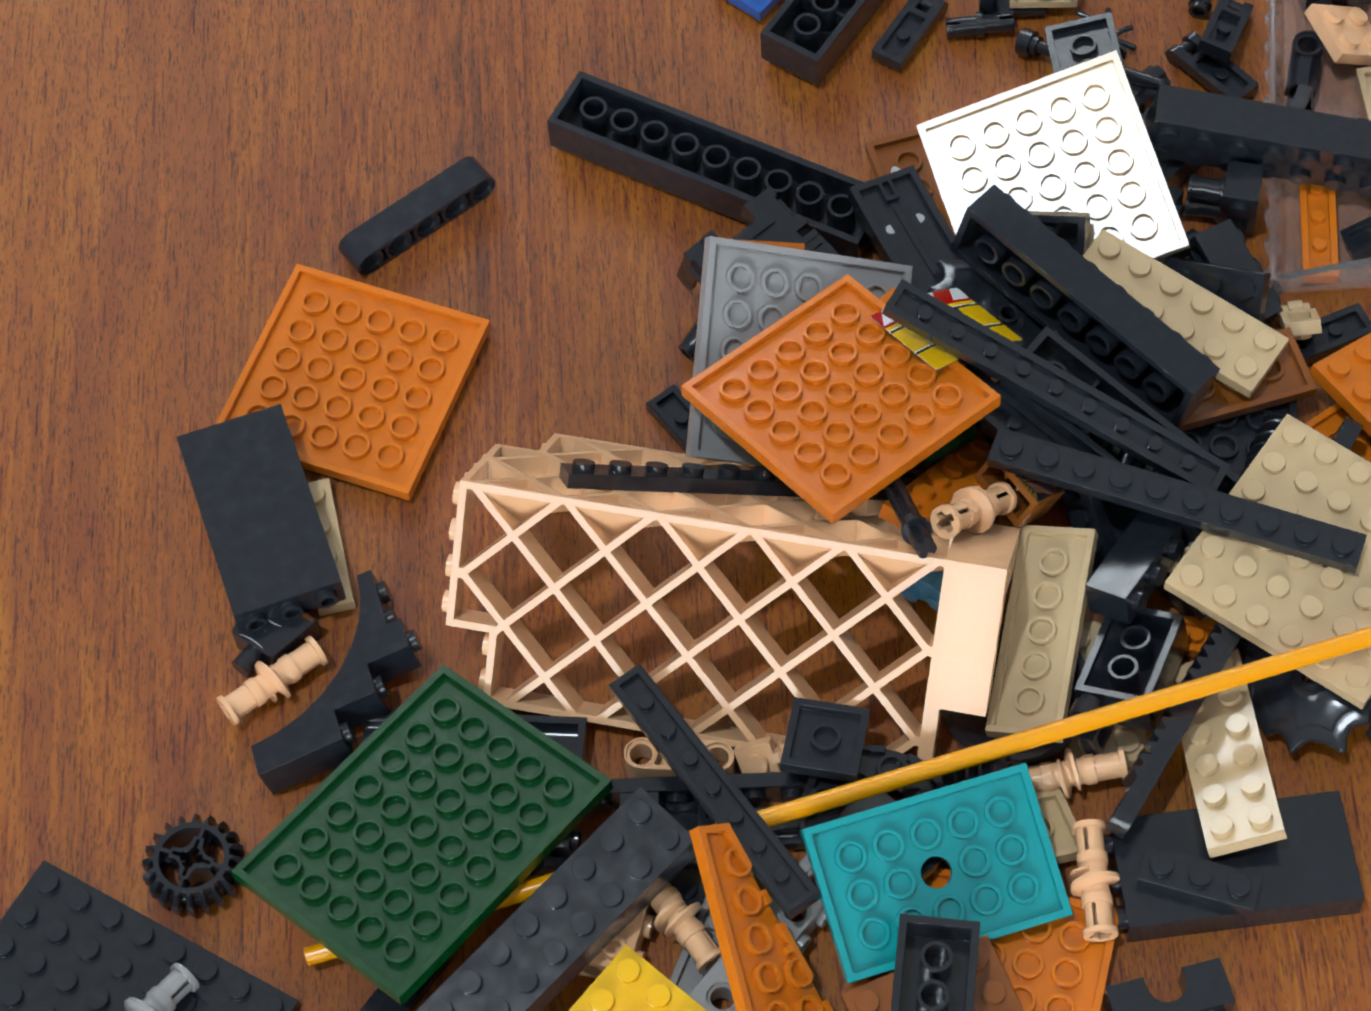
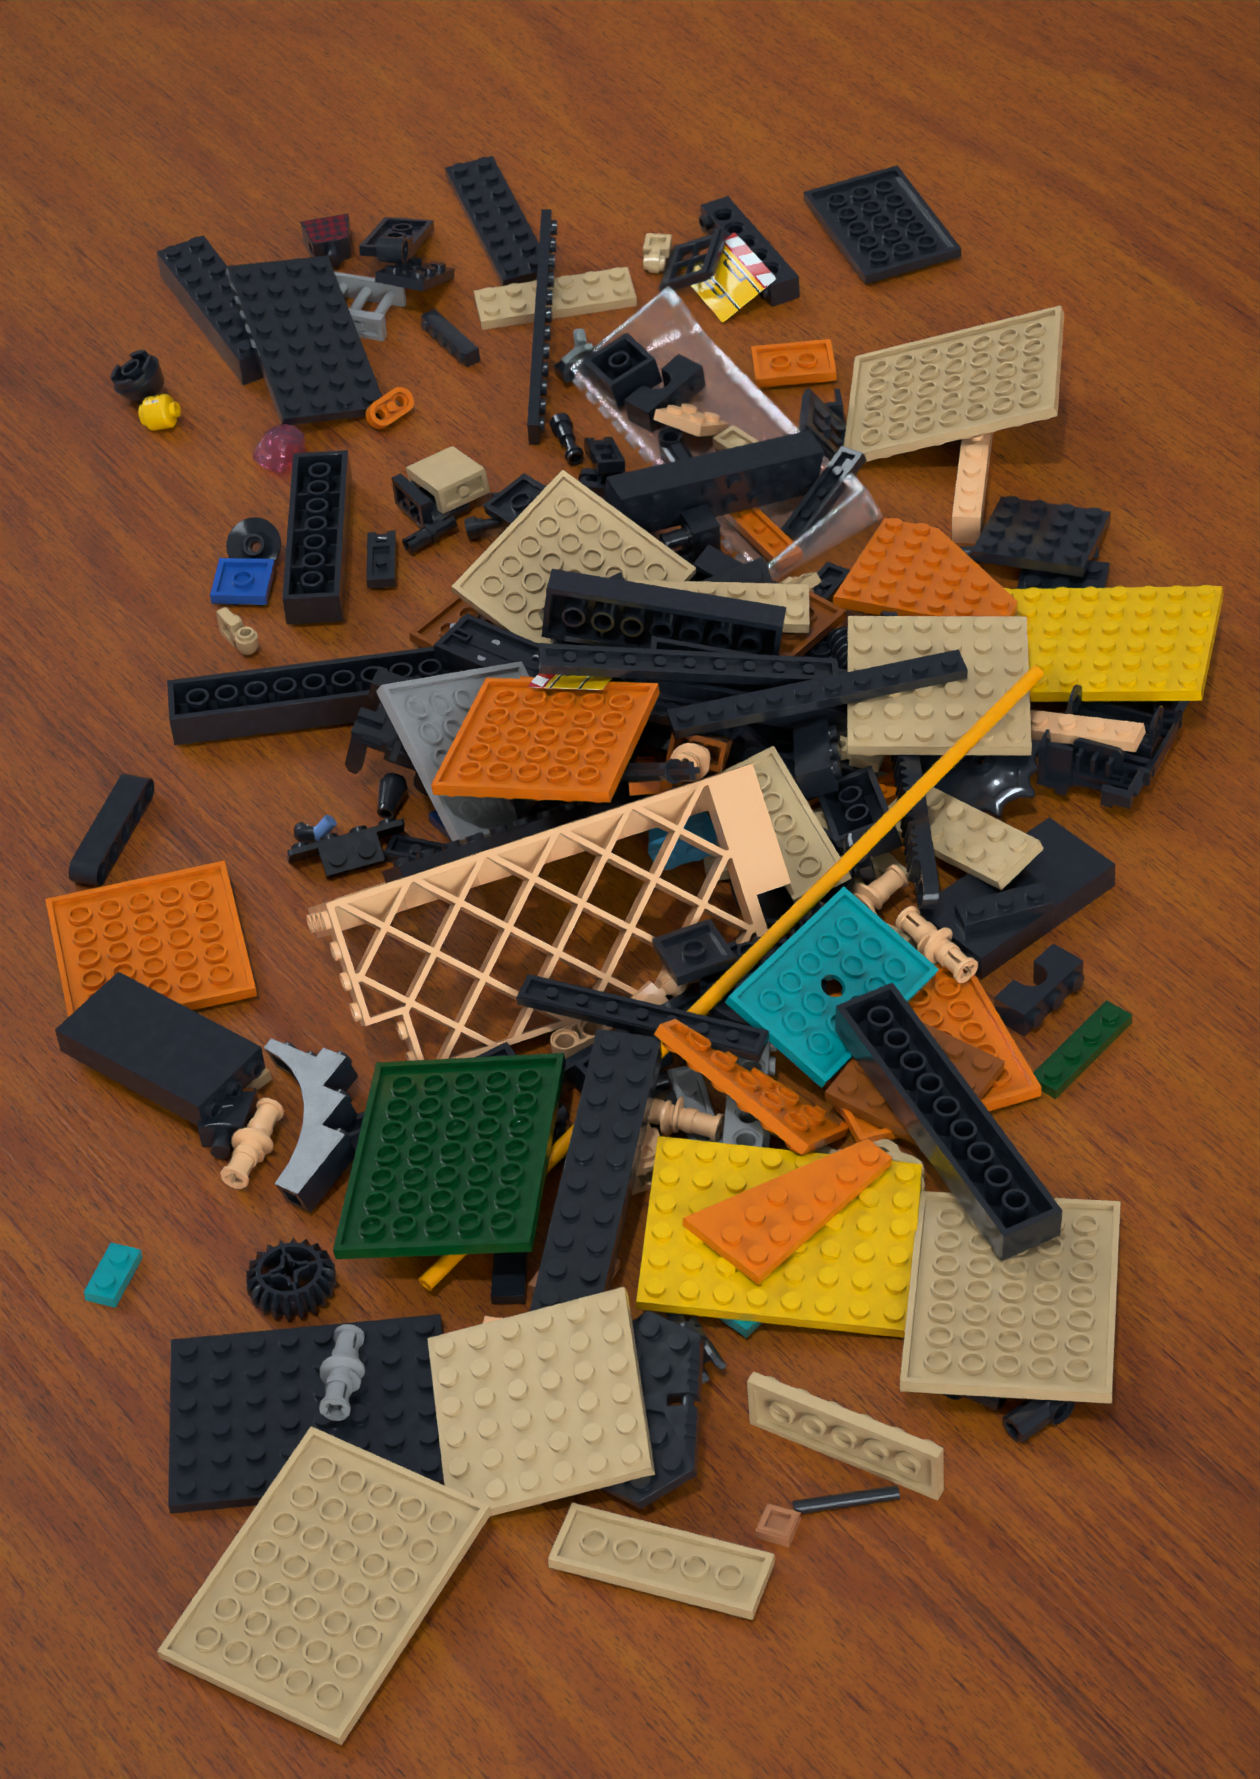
camera: 35 degrees left, 15 degrees down
(52, 746) = (113, 1275): none -> teal plate
(592, 332) = (314, 833): none -> arm
(615, 382) = (349, 851): none -> black bracket
(703, 55) = (233, 630): none -> tan plate

